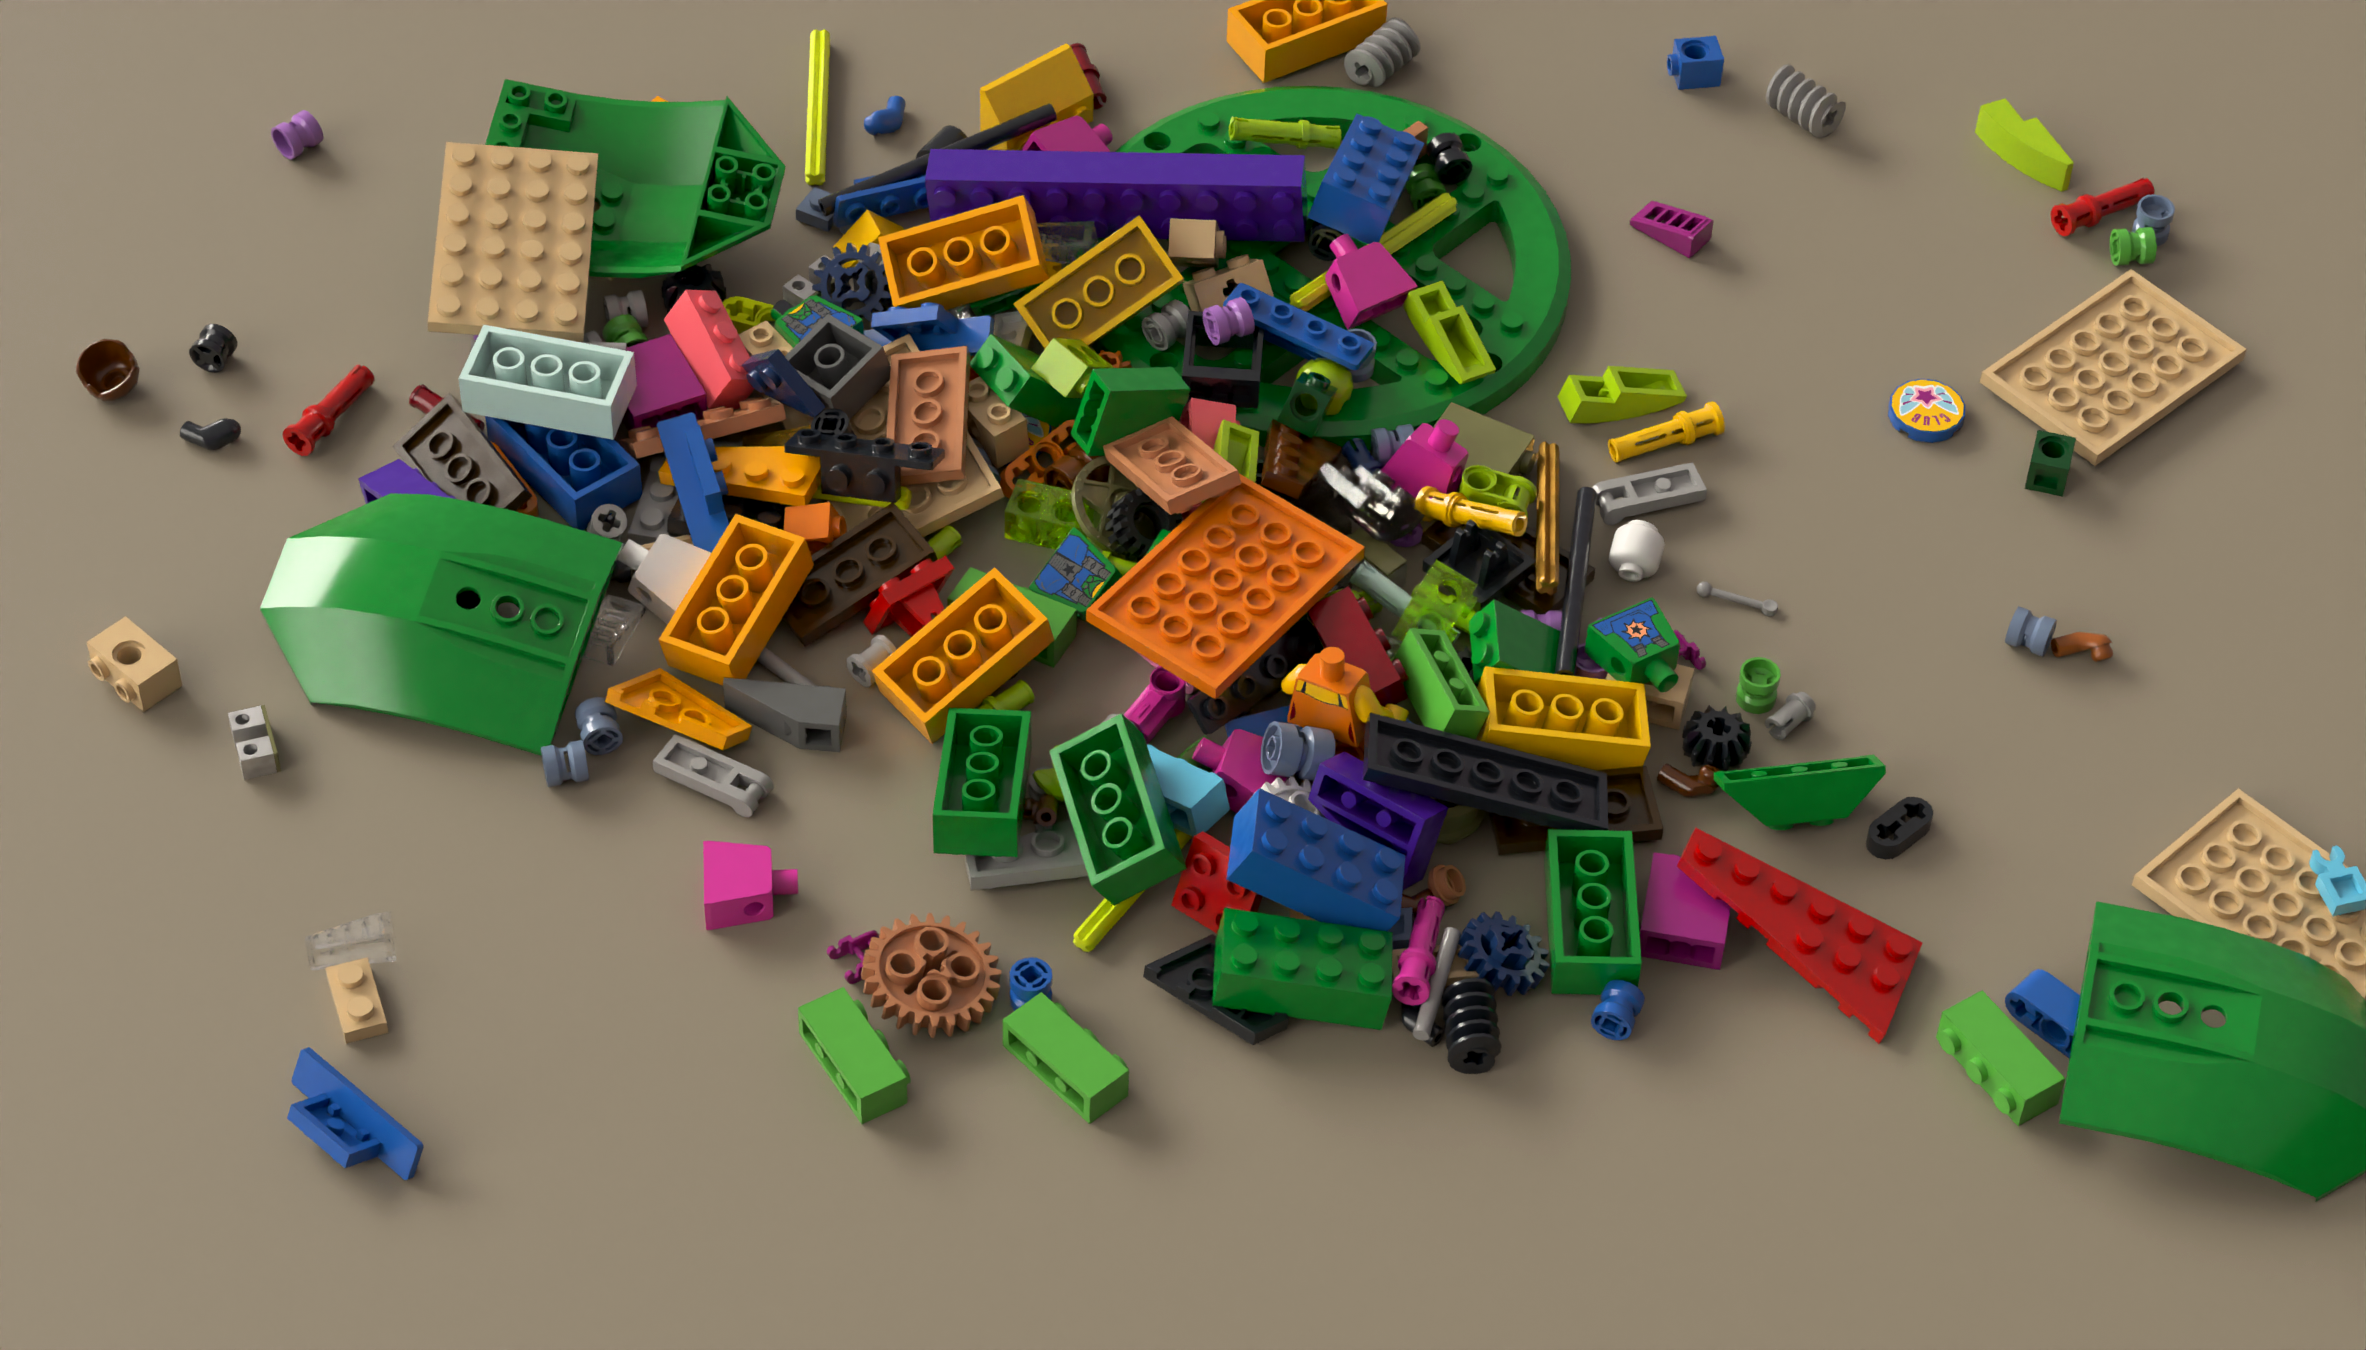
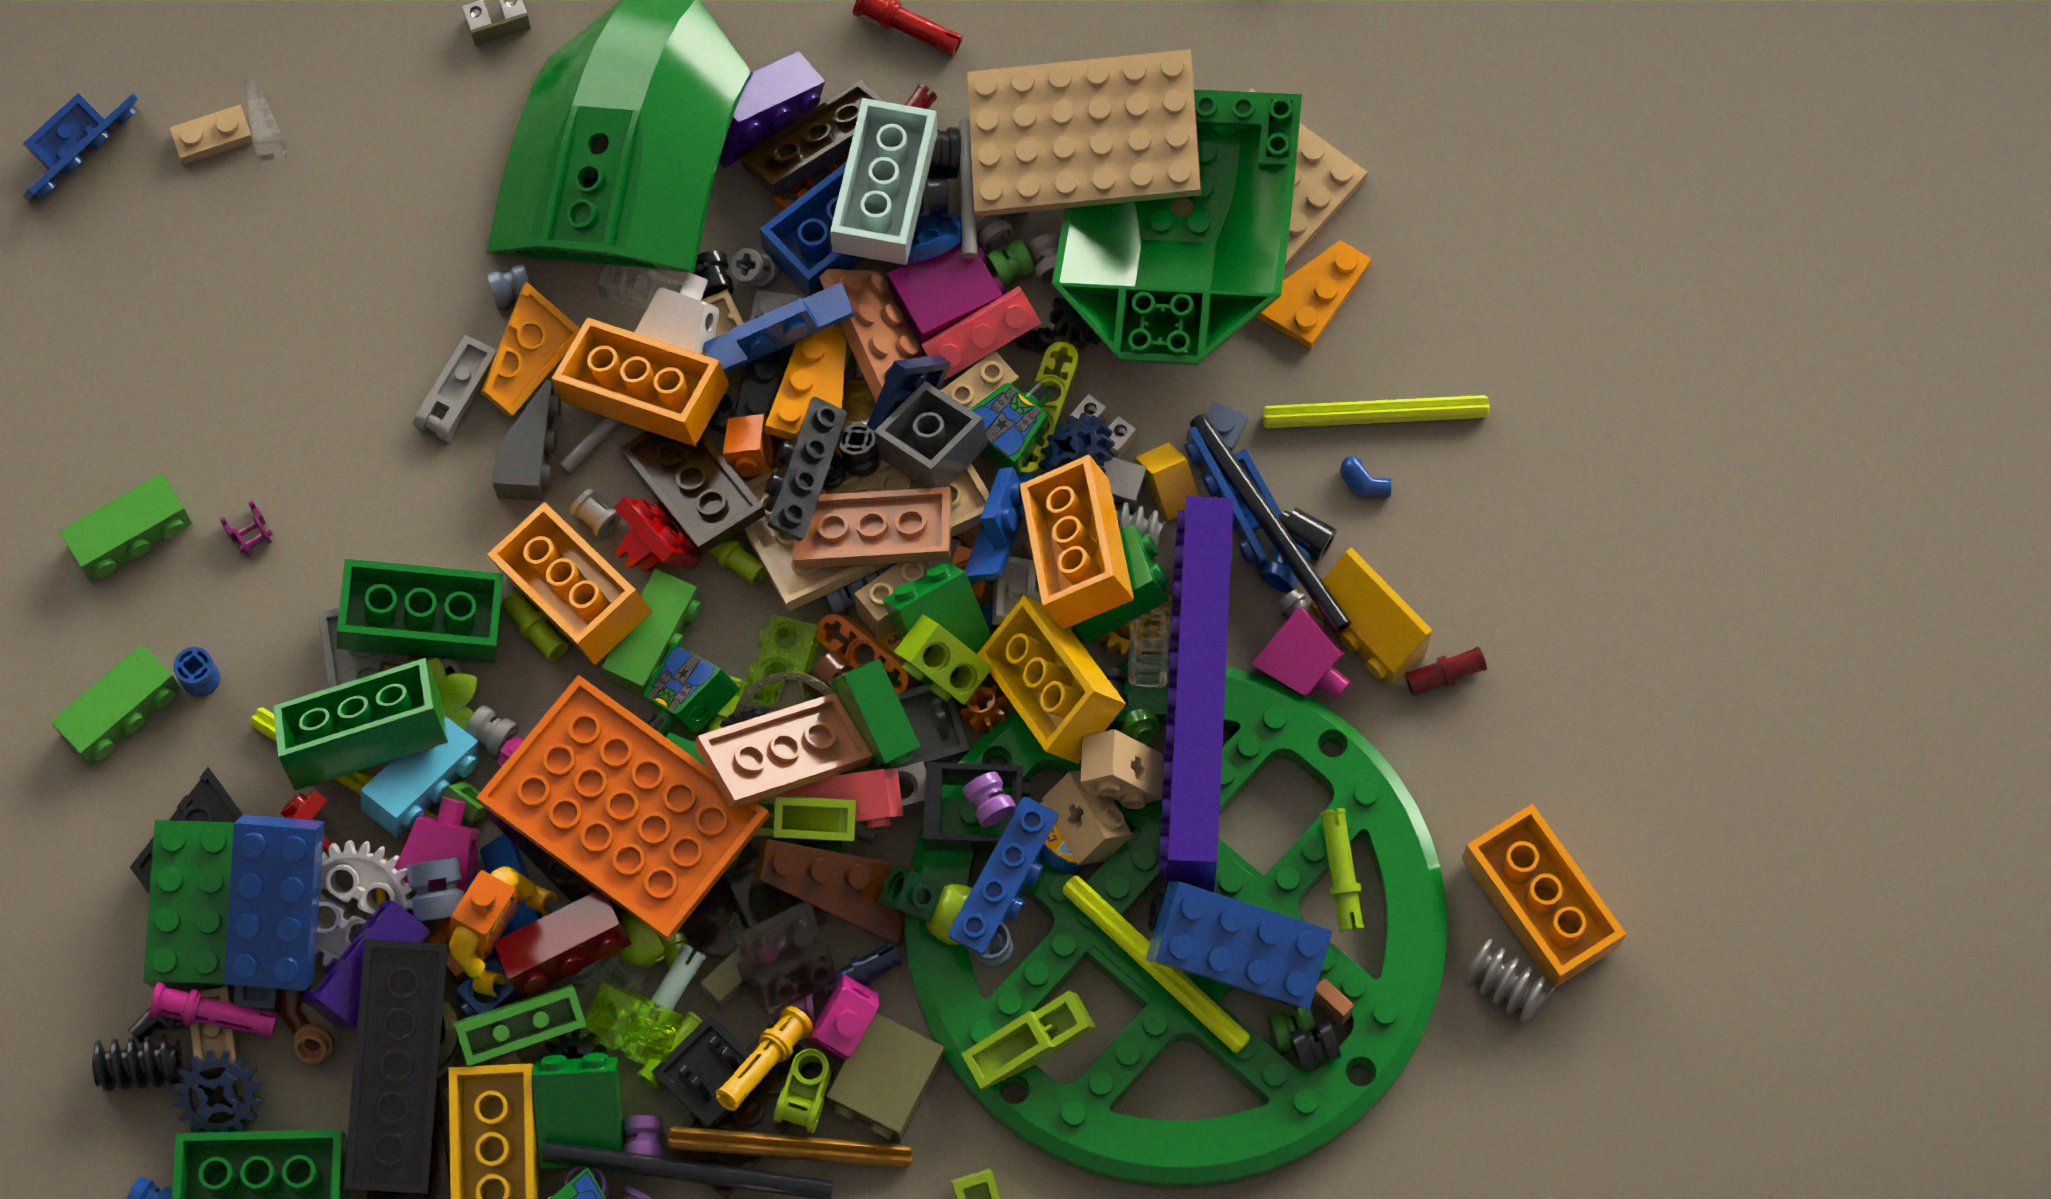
camera: 90 degrees right, 20 degrees up
(555, 765) = (466, 265): sand blue wheel -> none
(741, 883) = (323, 420): dark pink torso -> none
(919, 954) = (189, 612): nougat gear -> none
(1164, 327) = (1028, 752): light grey wheel -> none
(1365, 281) = (1090, 948): dark pink torso -> none
(1386, 443) = (899, 994): sand blue wheel -> none
(1437, 983) = (179, 1030): light grey bar -> none

